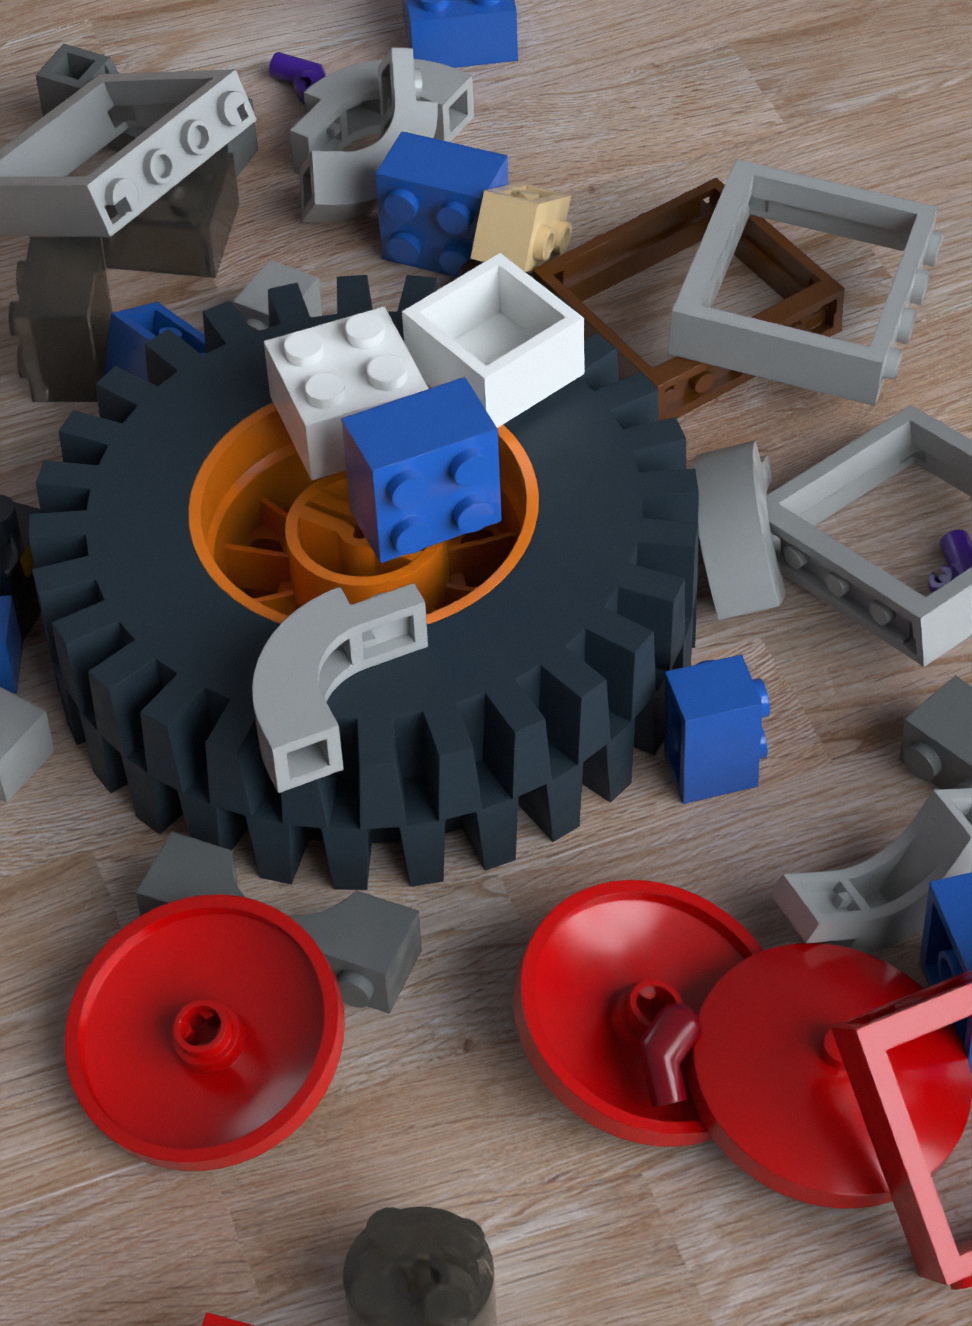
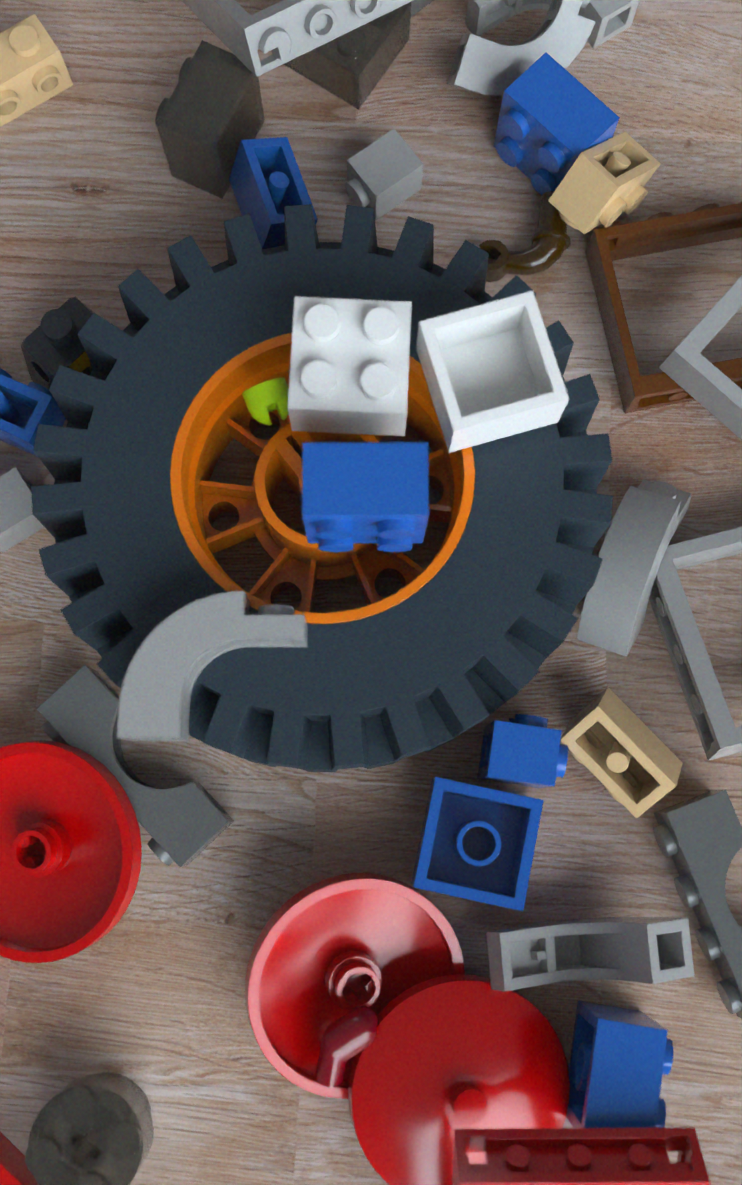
camera: 20 degrees right, 30 degrees up
(274, 453) = (267, 398): none -> lime hinge
(714, 825) = (477, 843): none -> blue brick
(827, 692) = (622, 753): none -> tan brick

